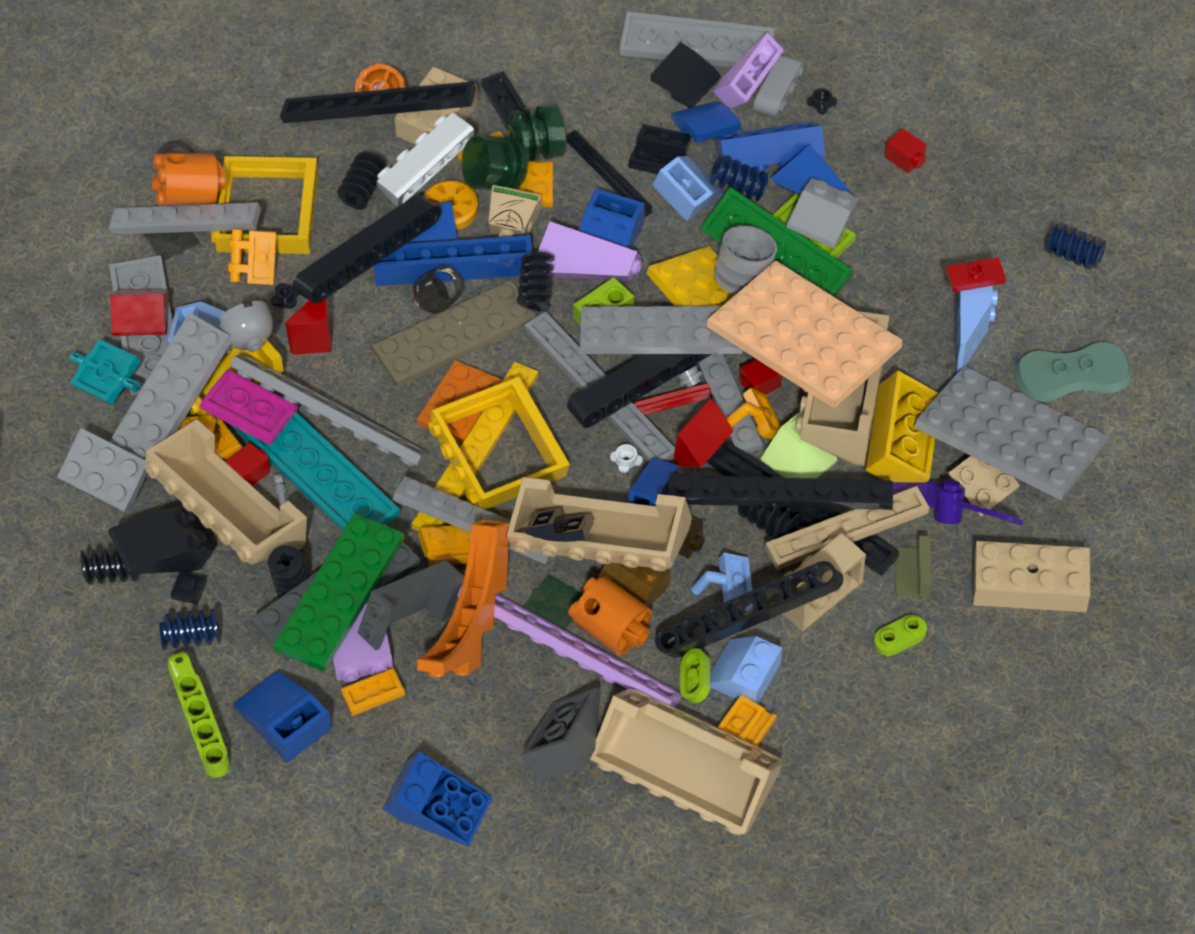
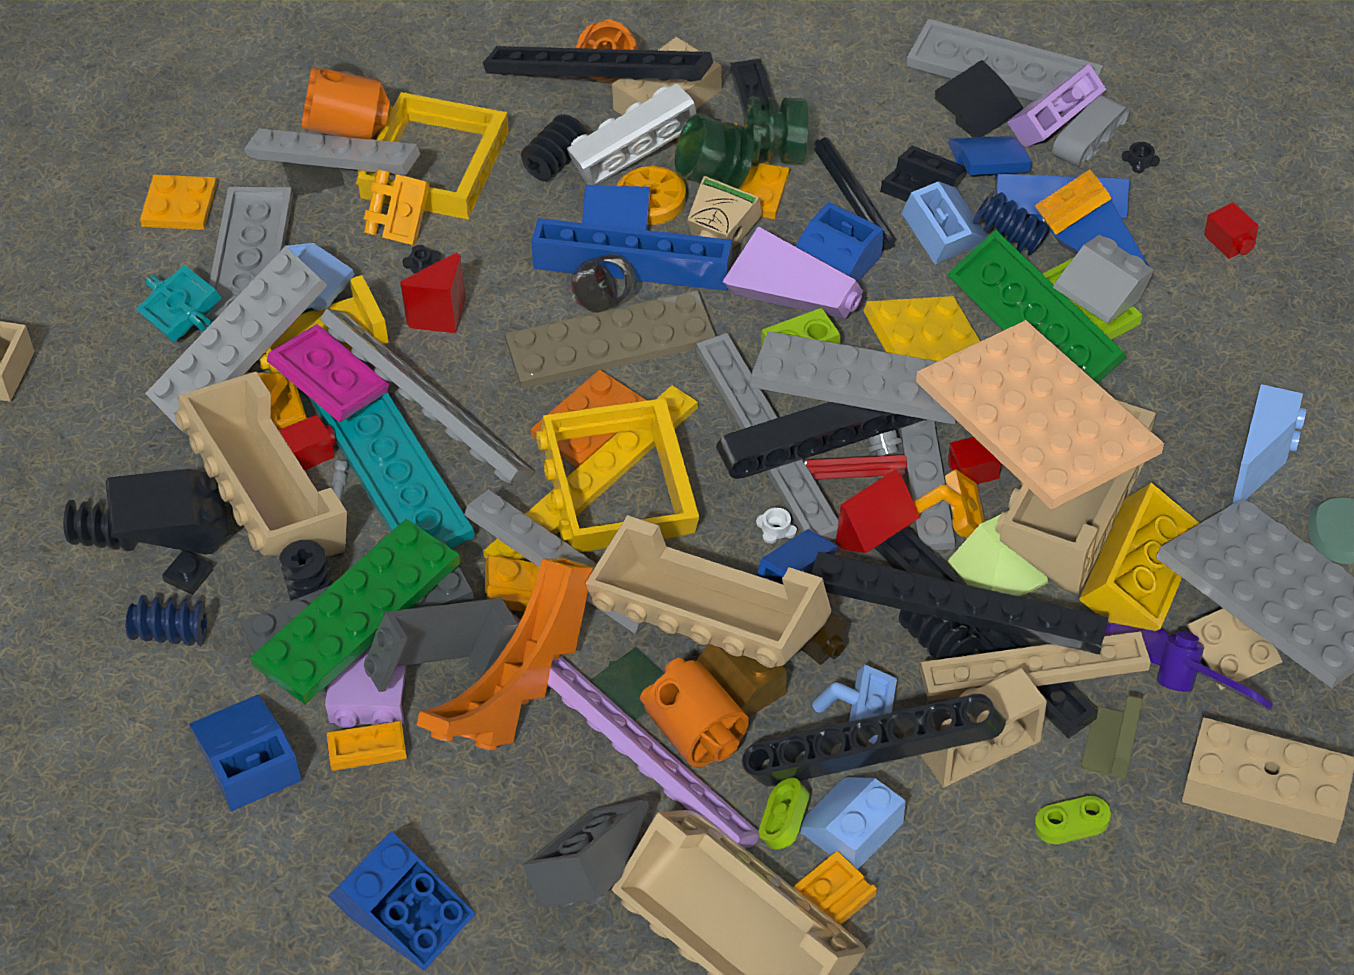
camera: 15 degrees right, 5 degrees down
(70, 284) = (178, 202): none -> light orange plate
(104, 470) = (134, 414): light grey plate -> none
(139, 312) = (240, 243): red slope -> none
(199, 725) = (143, 739): lime piece -> none
(247, 326) = (350, 274): light grey cylinder -> none
(366, 249) = (525, 217): black beam -> none
(533, 281) = (720, 293): black piece -> none
(553, 526) = (652, 584): black slope -> none
(743, 256) = (986, 307): light grey wheel -> none
(783, 153) = (1072, 202): none -> light orange plate
(975, 274) = (1281, 383): red plate -> none

